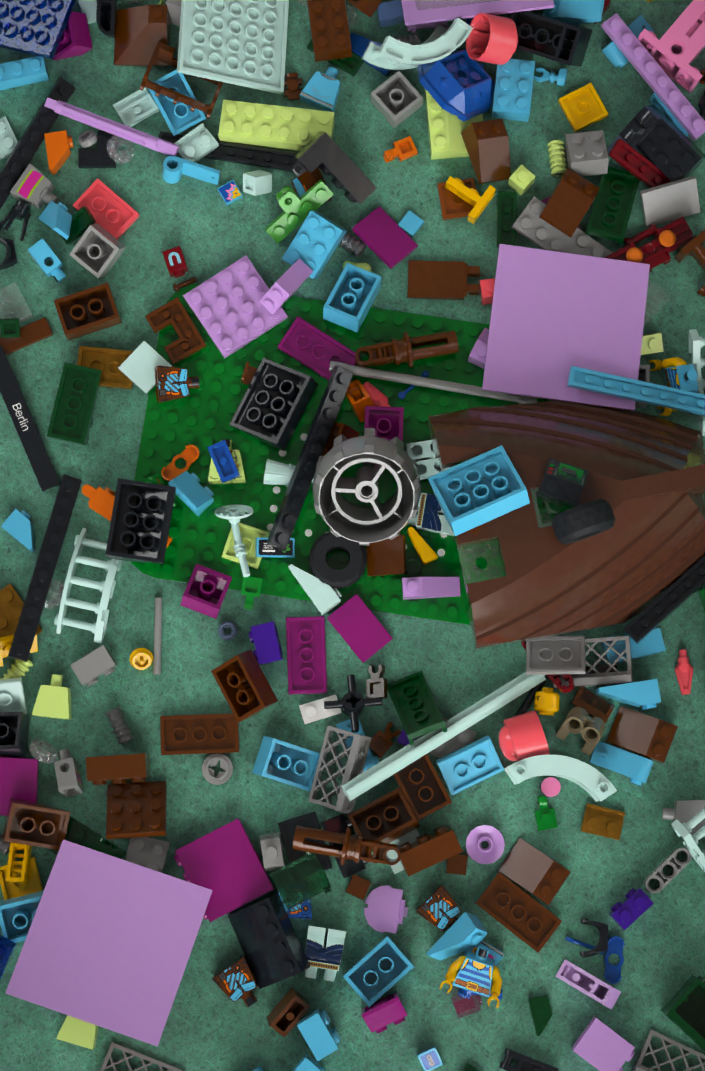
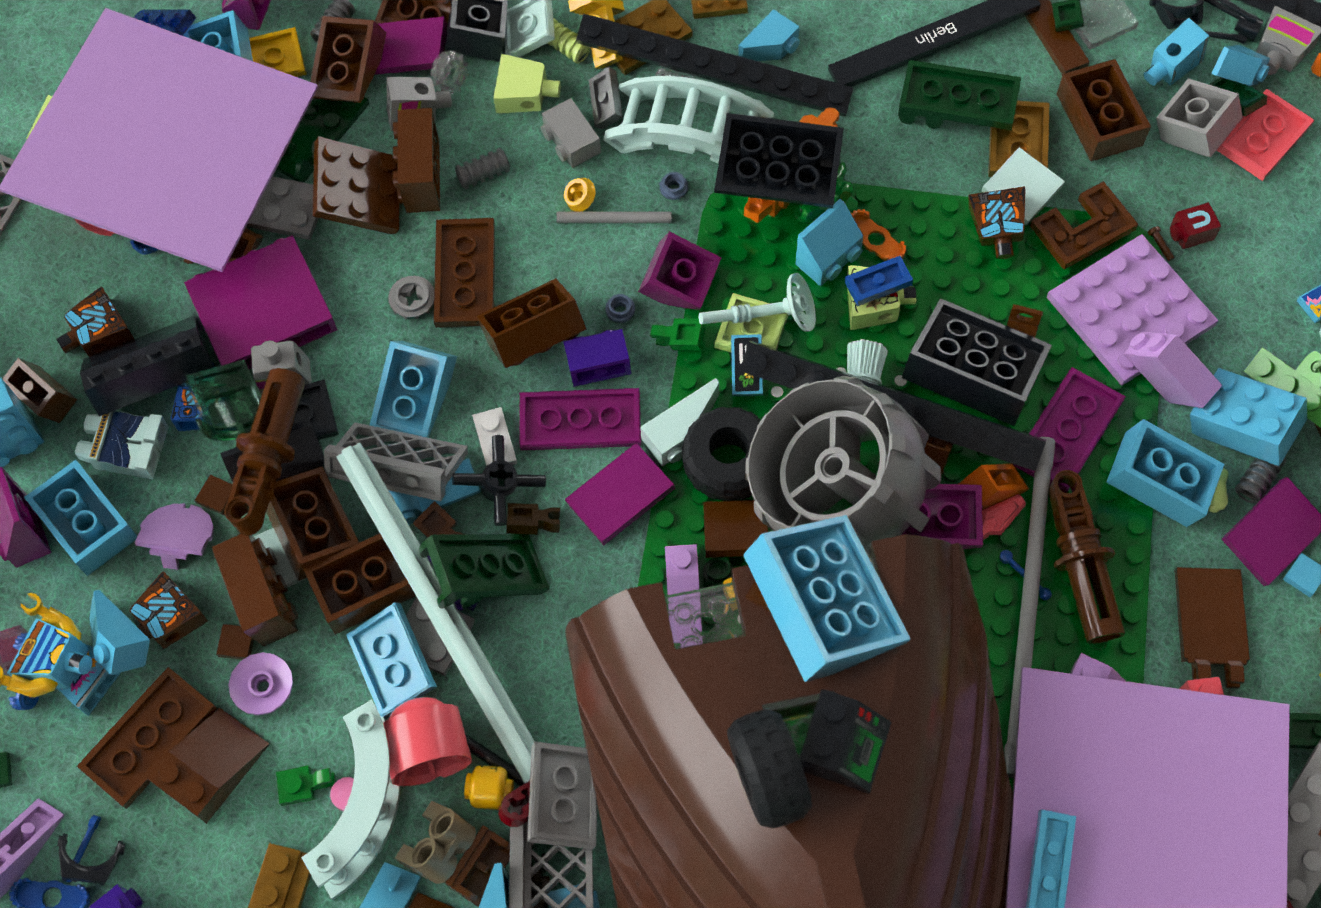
camera: 90 degrees right, 15 degrees down
(25, 863) = (295, 55): yellow slope -> none
(65, 643) = (605, 98): none -> flat silver plate
(131, 591) = (673, 178): none -> sand blue plate

